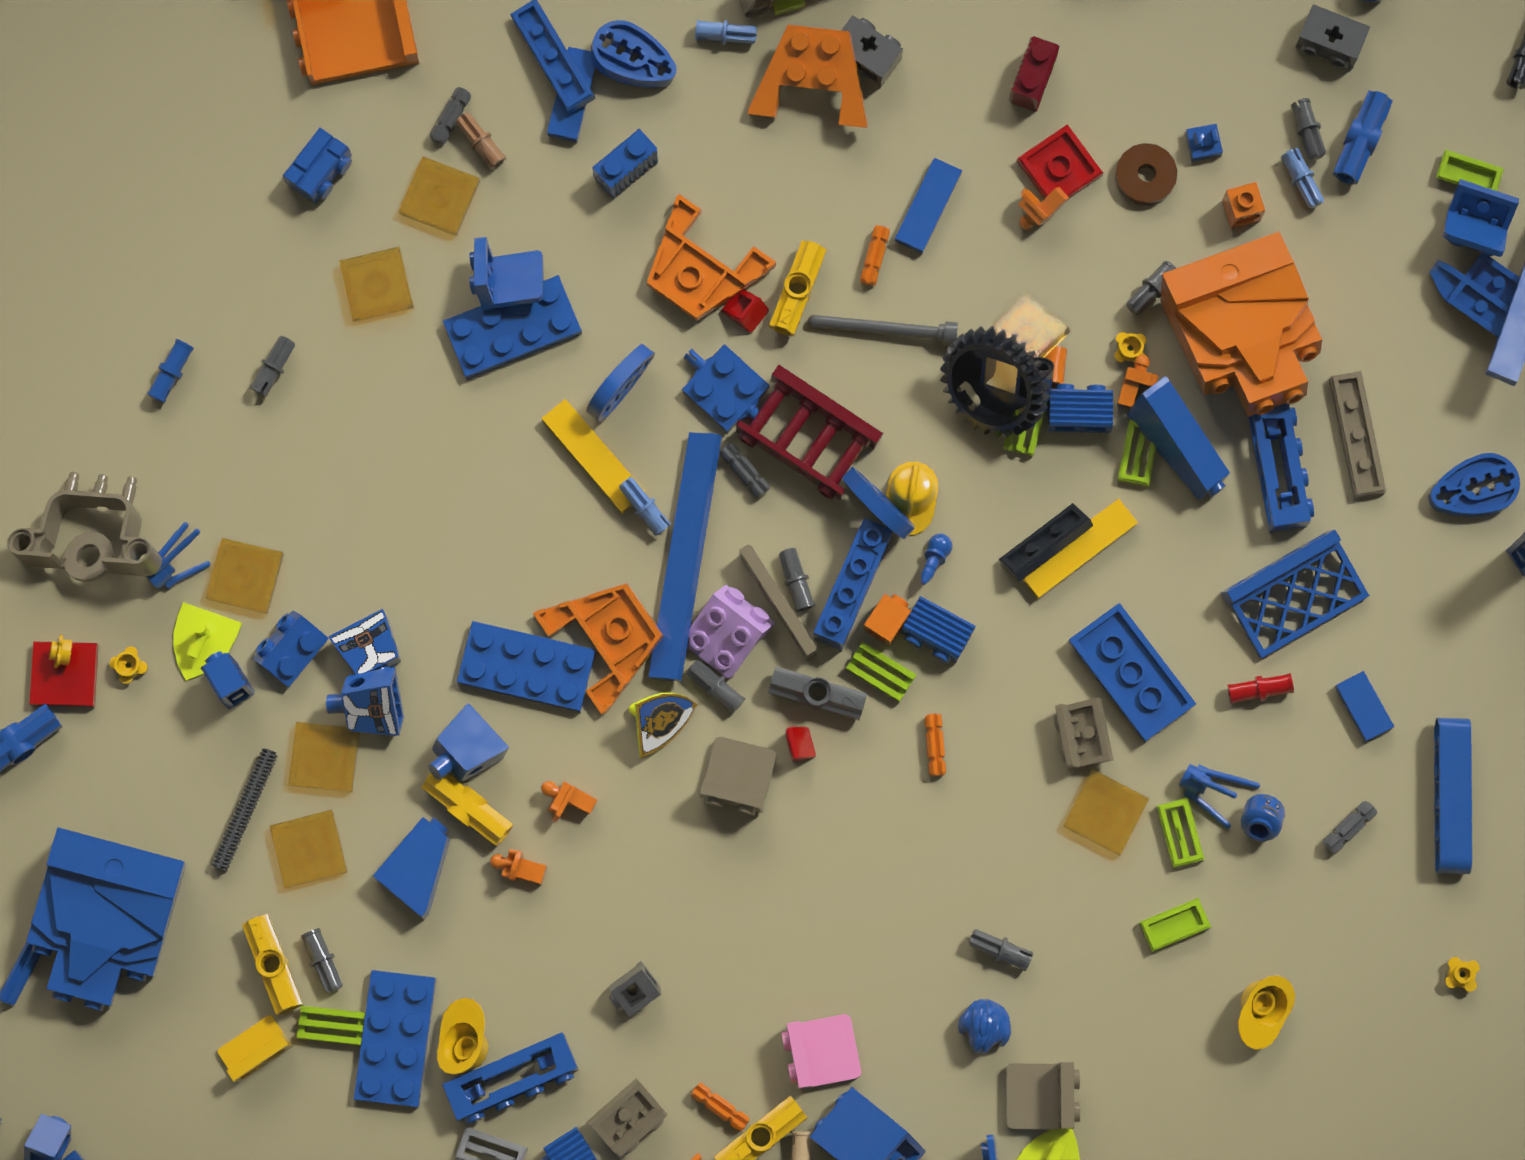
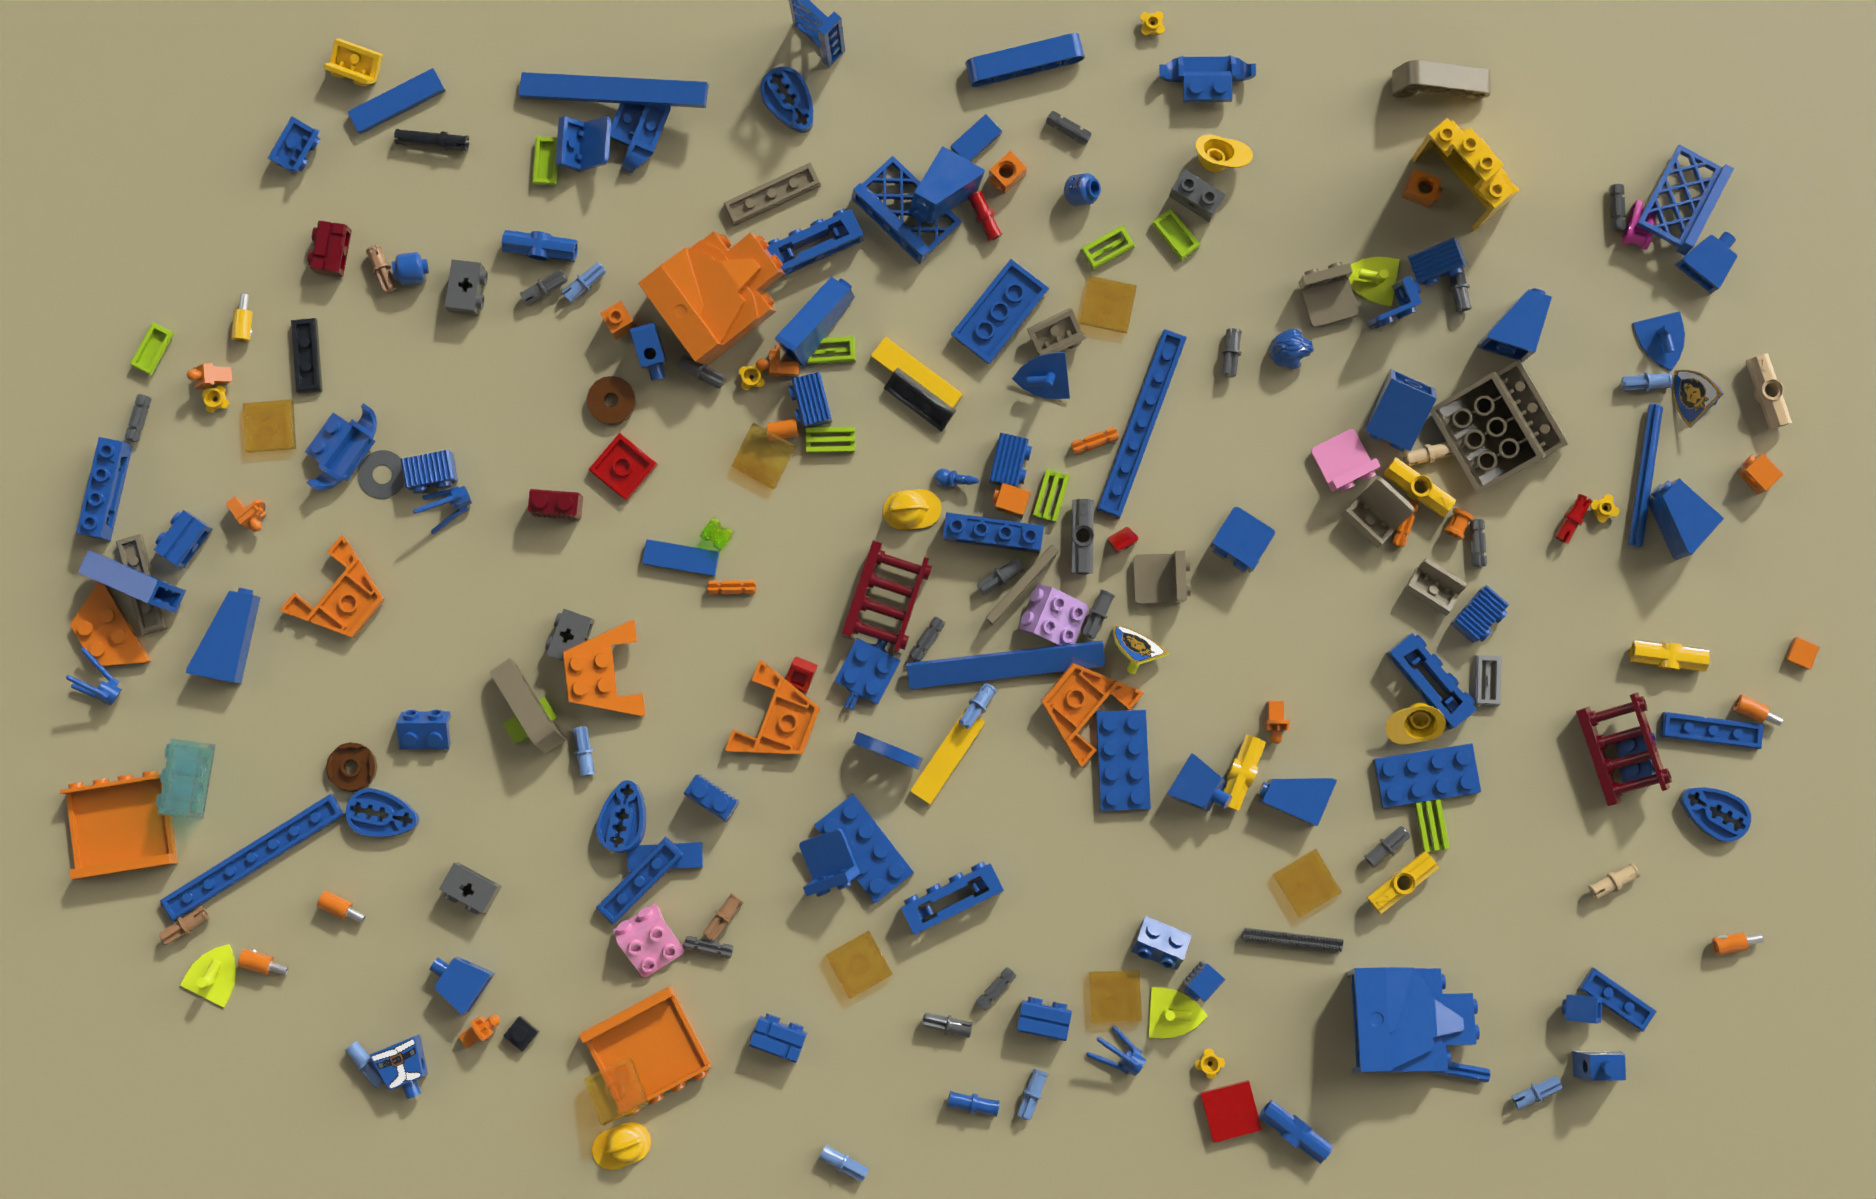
camera: 105 degrees left, 5 degrees up
(43, 540) = (1136, 1159): dark tan piece -> none
(60, 651) = (1218, 1117): yellow plate -> none
(149, 202) = (843, 1163): none -> medium blue axle
(159, 443) = (1032, 1094): none -> medium blue axle
(243, 480) = (1044, 1019): none -> blue brick
(253, 1048) = (1466, 877): yellow panel -> none
(297, 435) = (996, 988): none -> dark grey axle
(324, 757) = (1235, 892): clear yellow tile -> none
(368, 644) = (1146, 881): torso -> none
(370, 702) = (1188, 868): blue torso -> none
(430, 461) = (958, 881): none -> blue brick
(439, 196) = (775, 936): clear yellow tile -> none
(478, 47) = (648, 941): none -> bright pink bracket
(566, 794) = (1213, 702): orange piece -> none
(633, 1002) = (1341, 608): flat silver brick -> none
(742, 1070) = (1378, 511): none -> dark tan bracket
(757, 891) = (1242, 539): none -> blue bracket
(803, 271) = (758, 637): yellow piece -> none
(878, 503) = (927, 529): blue piece -> none
(942, 811) = (1141, 423): none -> blue tile
(944, 253) = (717, 534): none -> clear neon green wheel
(944, 334) = (779, 518): dark grey piece -> none
(974, 361) = (827, 462): black piece -> none
(1033, 704) = (1045, 376): none -> blue shield
(1040, 211) = (663, 470): orange piece -> none
(1197, 780) = (1067, 244): blue plant -> none
(1203, 142) = (574, 363): blue tile -> none
(1207, 231) = (645, 339): none -> blue torso
(1217, 963) = (1197, 195): none -> dark grey brick
(1306, 744) = (1010, 163): none -> orange brick
(1309, 641) = (945, 186): none -> blue slope
(1372, 1023) = (1207, 77): none -> blue plate

